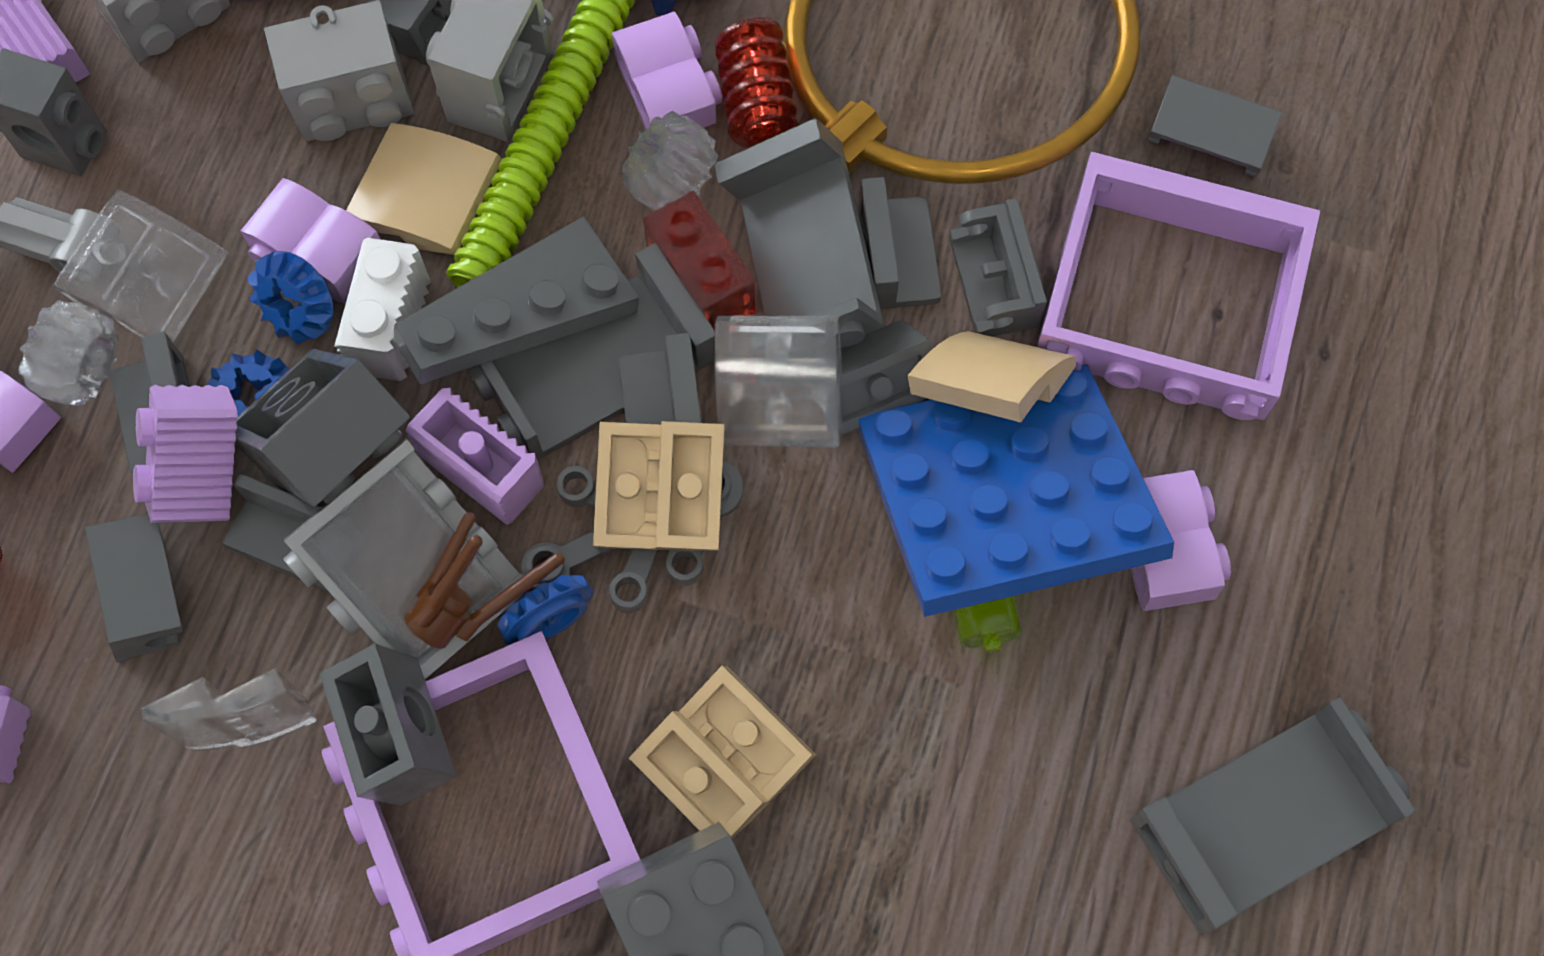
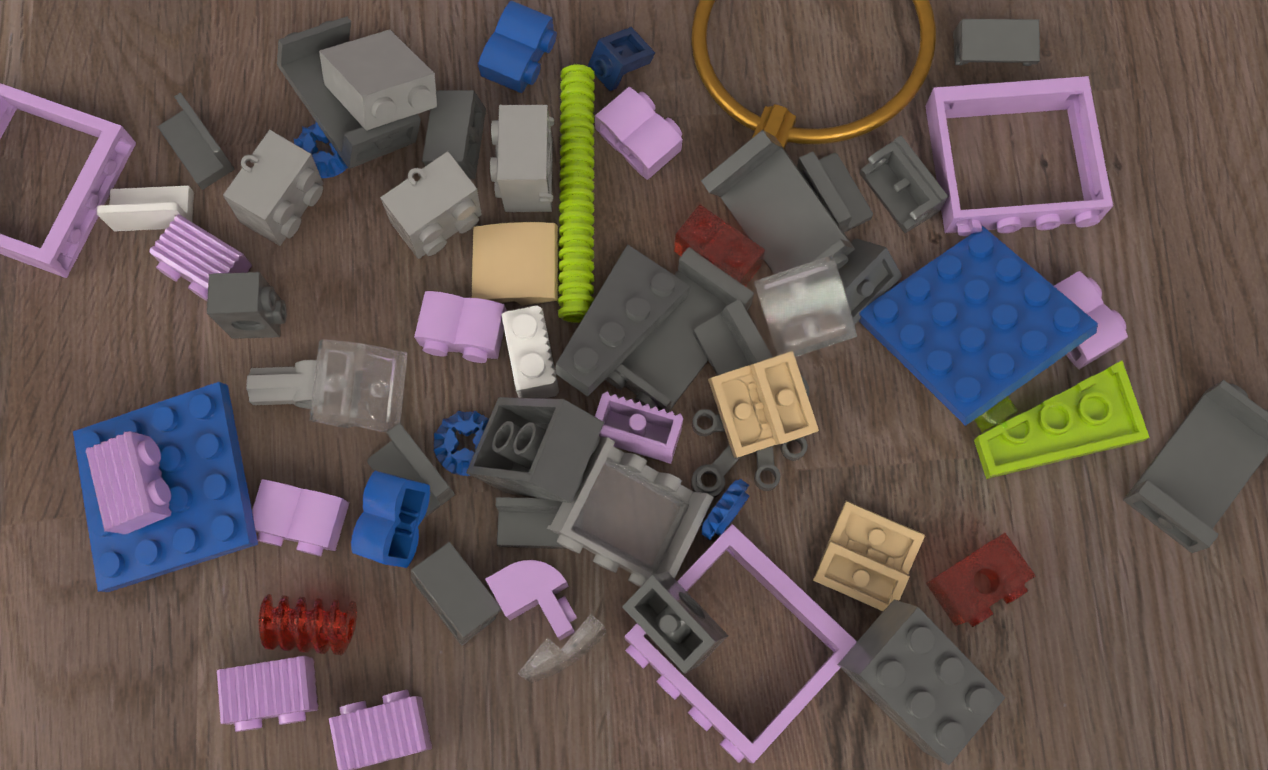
camera: 20 degrees left, 5 degrees up
(68, 353) = (341, 460): clear gear -> none
(87, 461) = (390, 519): none -> blue brick
(187, 453) = (458, 497): lavender brick -> none
(236, 614) = (530, 584): none -> lavender brick
(298, 281) = (472, 357): blue gear -> none
(444, 605) = (670, 534): reddish brown plant -> none
(668, 161) = (671, 190): clear gear -> none
(755, 81) = (698, 119): clear red piece -> none
(893, 822) = (1001, 565): none -> clear red brick
(990, 374) = (934, 256): tan slope -> none
(1104, 683) = (1075, 423): none -> lime wing

